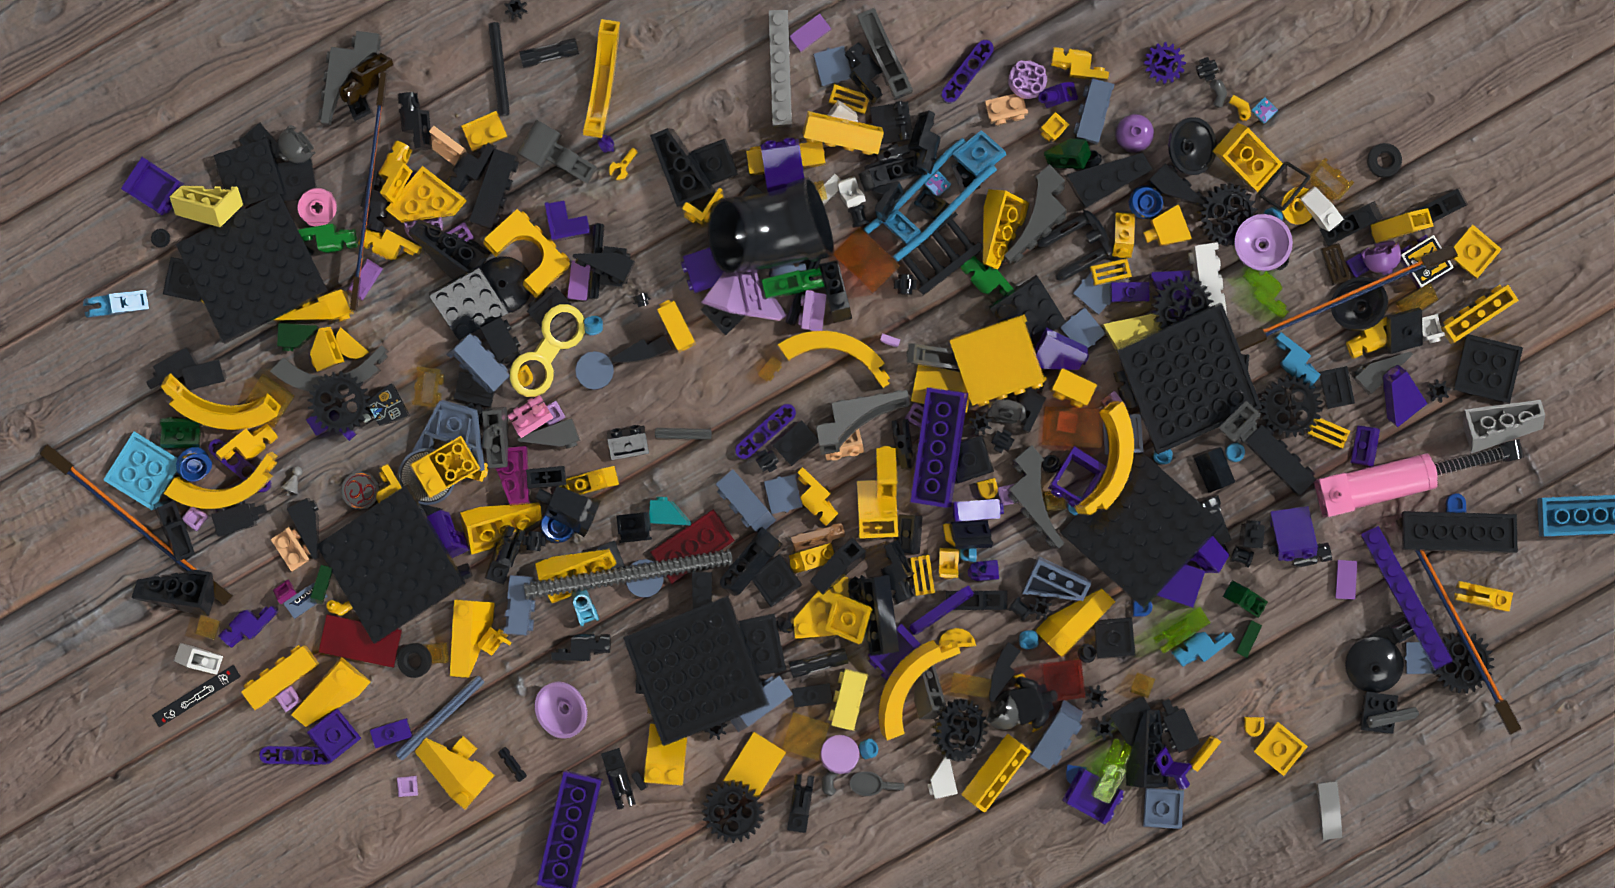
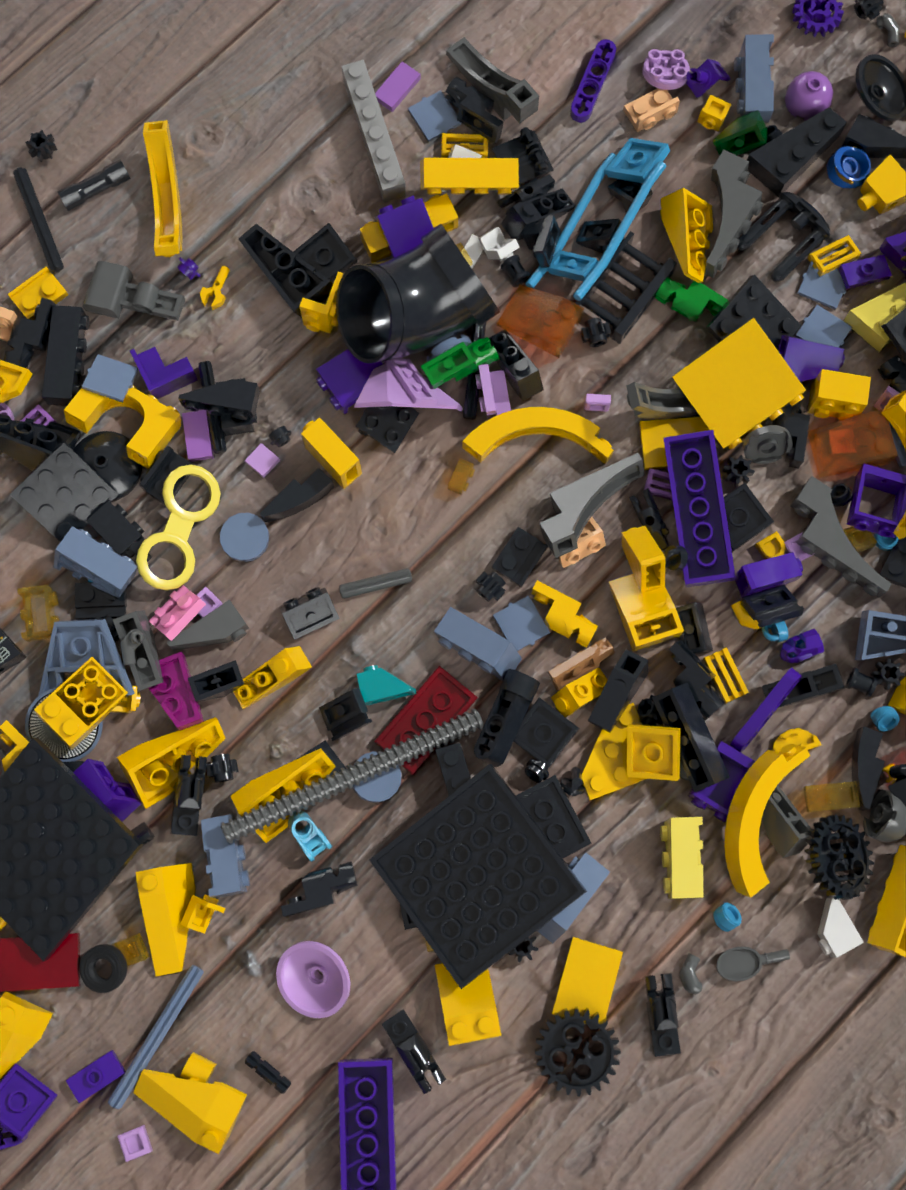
camera: 15 degrees left, 10 degrees down
(524, 220) = (110, 378): none -> sand blue piece
(525, 376) = (159, 567): yellow tile -> none
(554, 530) = (247, 741): blue piece -> none
(569, 508) = (256, 712): black piece -> none
(593, 325) = (227, 481): dark azure tile -> none
(623, 314) = (262, 460): none -> lavender tile
(637, 777) = (442, 1046): black tile -> none
(762, 606) = (536, 770): none -> black plate
(768, 434) = (479, 554): dark purple beam -> none
(805, 736) = (641, 923): clear yellow plate -> none
(812, 695) = (633, 867): black plate -> none
(820, 662) = (630, 822): black axle -> none
(839, 754) = (693, 934): lavender tile -> none
(908, 480) = (676, 557): none -> black tile
(924, 143) = (569, 167): black plate -> none
(937, 184) = (597, 210): tile -> none
(948, 563) = (754, 650): yellow bracket -> none
(1002, 441) = (772, 483): black gear -> none
(1079, 64) = (716, 35): yellow plate -> none
(1124, 235) = (839, 210): yellow bracket -> none

